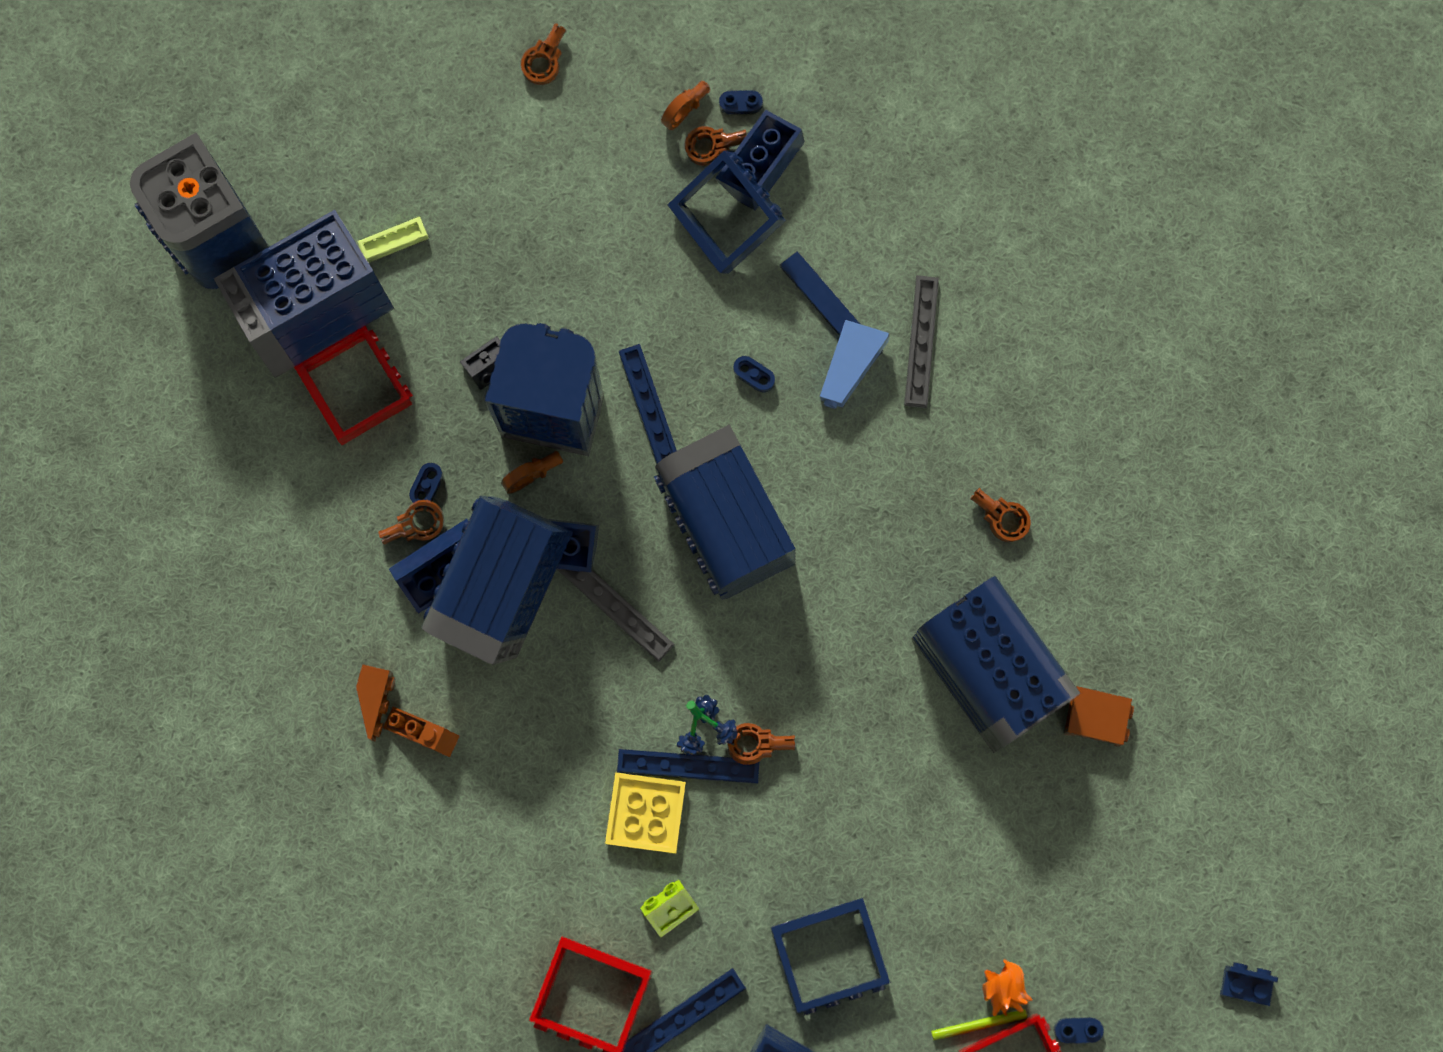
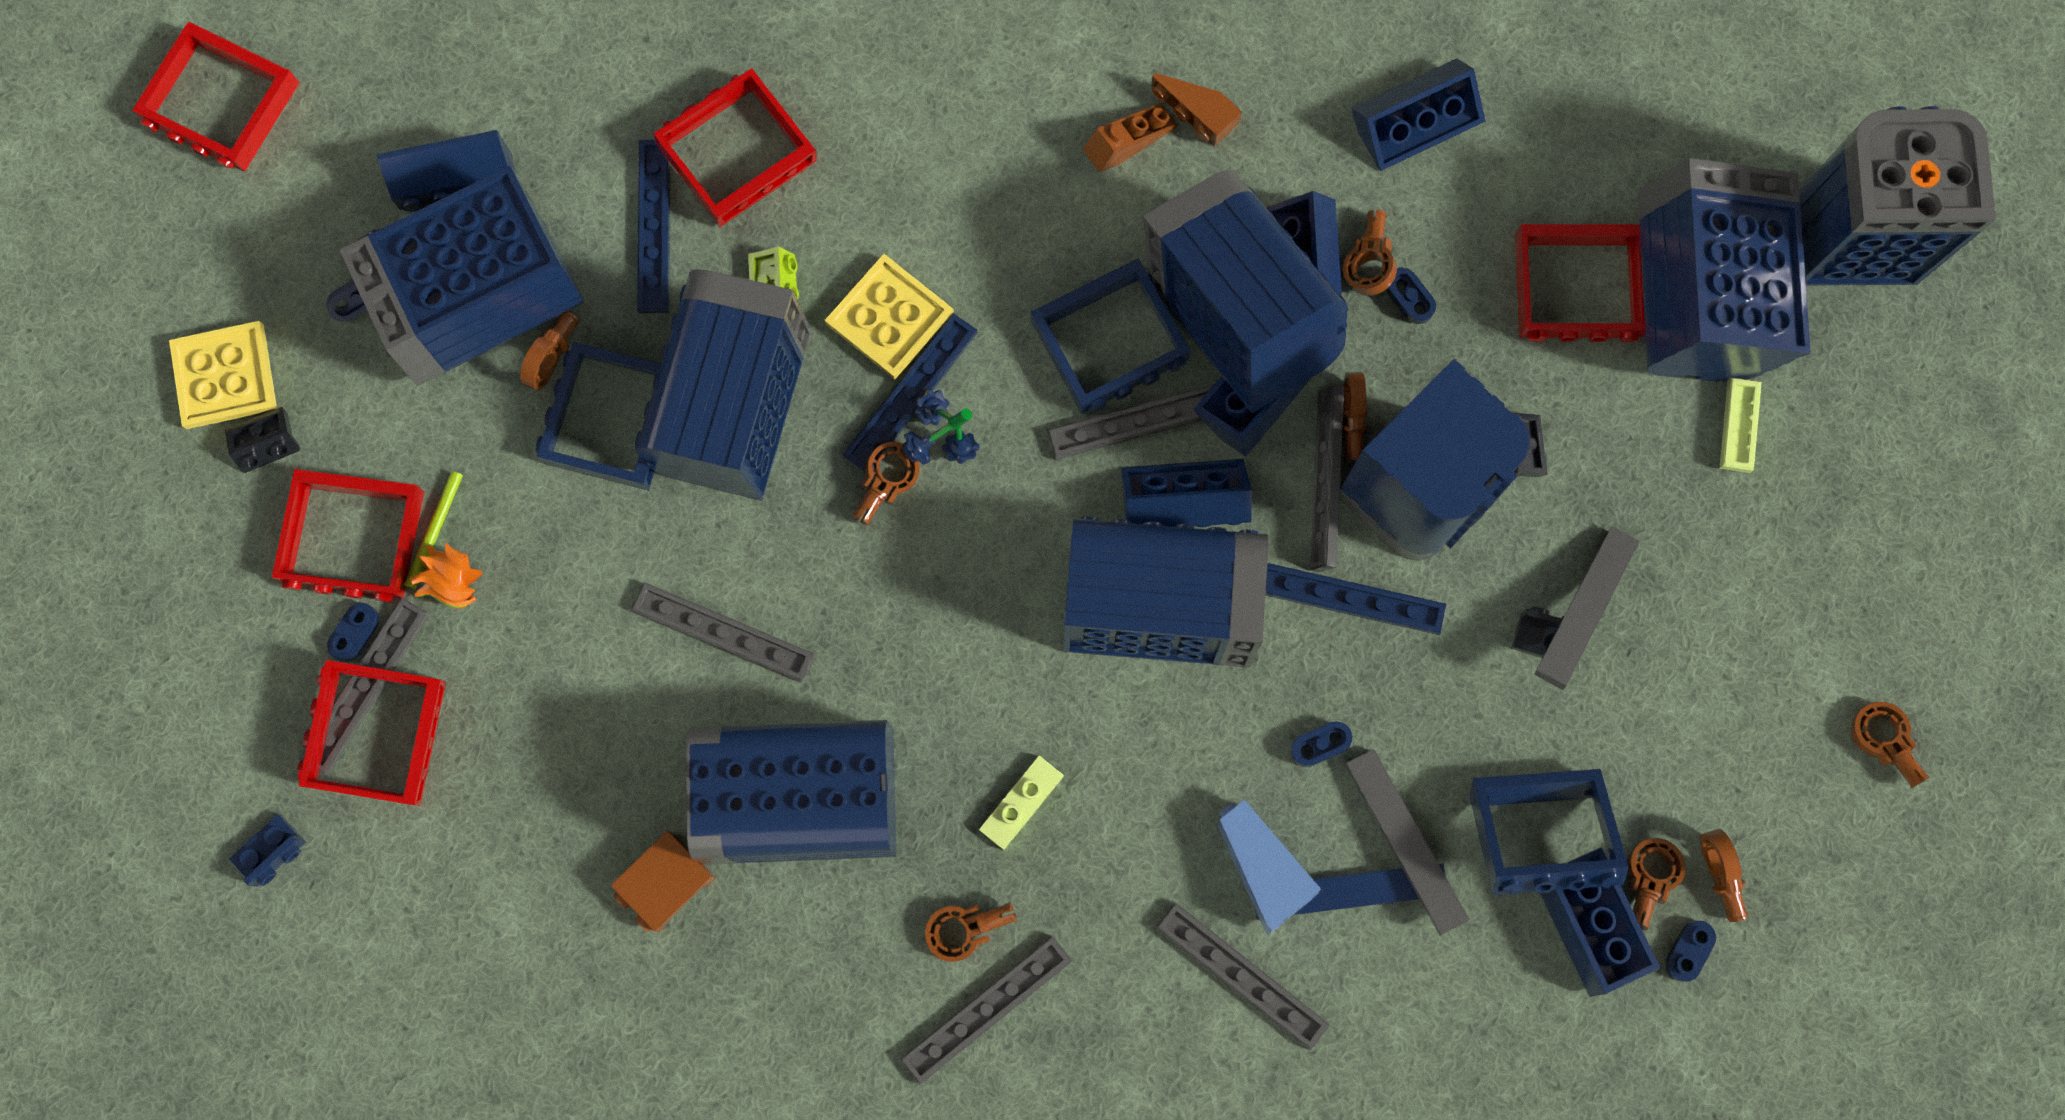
camera: 125 degrees right, 0 degrees up
(292, 551) = (1419, 113): none -> dark blue slope
(572, 263) = (1586, 608): none -> dark grey tile
(582, 466) = (1327, 479): none -> dark grey tile
(584, 619) = (1089, 294): none -> dark blue window
(602, 280) = (1535, 631): none -> black bracket
(647, 547) = (1188, 493): none -> dark blue slope
(769, 883) = (725, 384): none -> dark blue piece
(781, 291) = (1407, 842): none -> dark grey tile
(813, 1028) = (546, 351): none -> dark orange pin
(905, 531) = (1021, 802): none -> yellowish green plate
(921, 785) = (723, 632): none -> dark grey tile
(1040, 476) = (985, 1010): none -> dark grey tile
(1106, 997) = (362, 692): none -> dark grey tile
(1174, 949) = (321, 711): none -> red window

